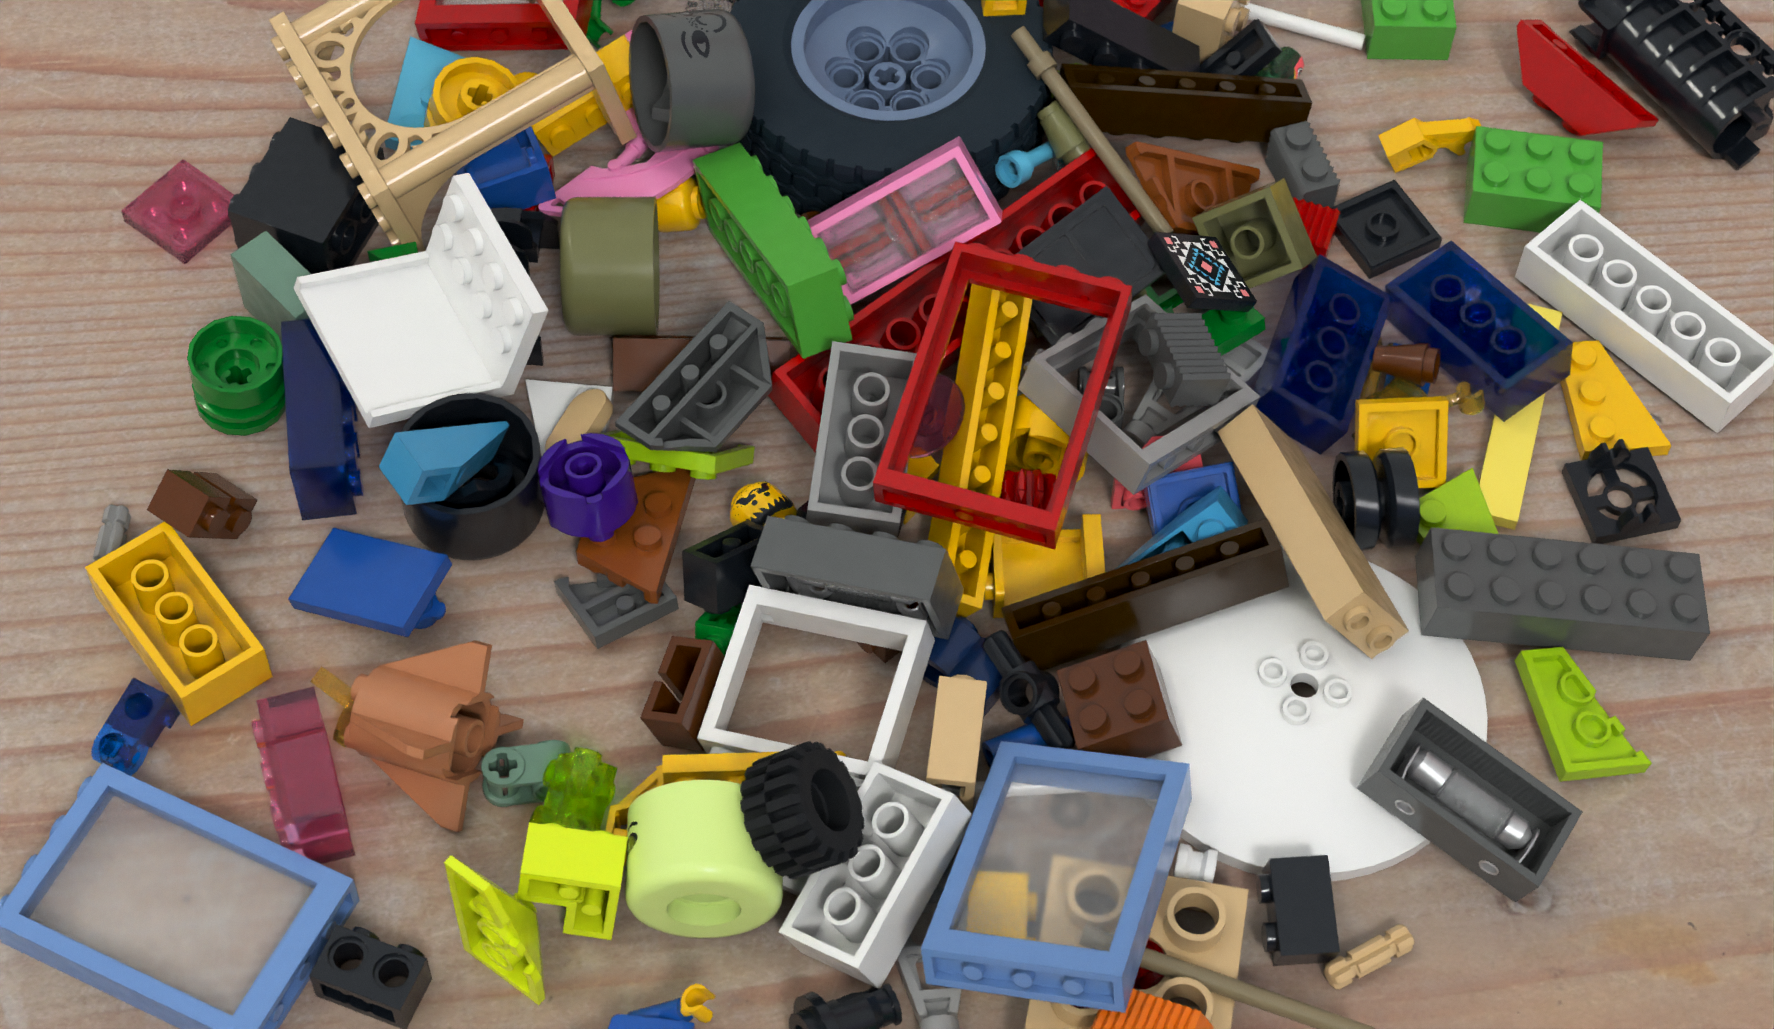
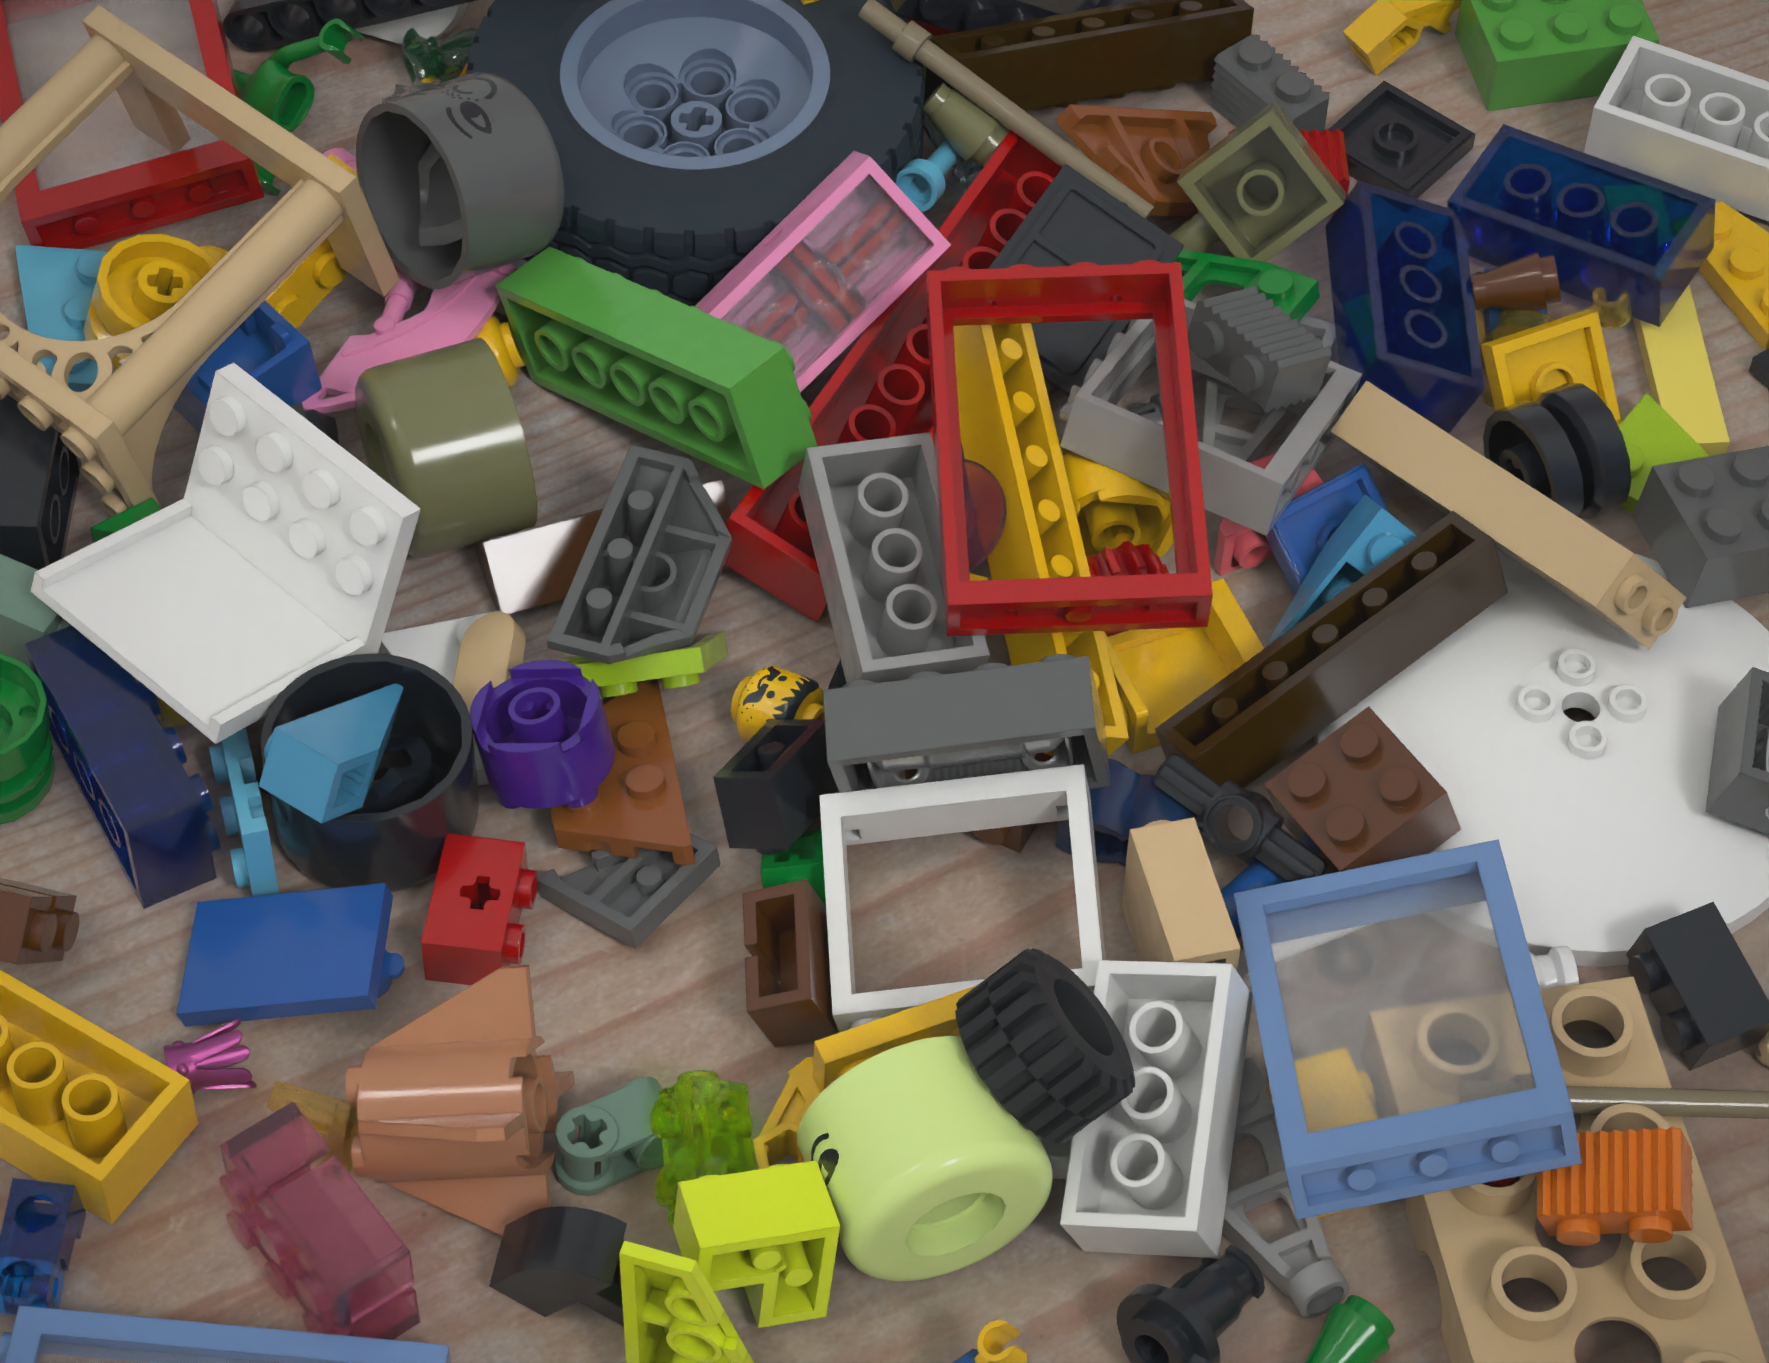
camera: 20 degrees left, 5 degrees down
(281, 636) = (206, 1057): none -> flat silver piece
(378, 495) = (244, 815): none -> medium azure wing
(452, 833) = (562, 1259): none -> black brick
(505, 591) = (477, 909): none -> red brick
(1201, 272) = (1224, 241): black tile -> none

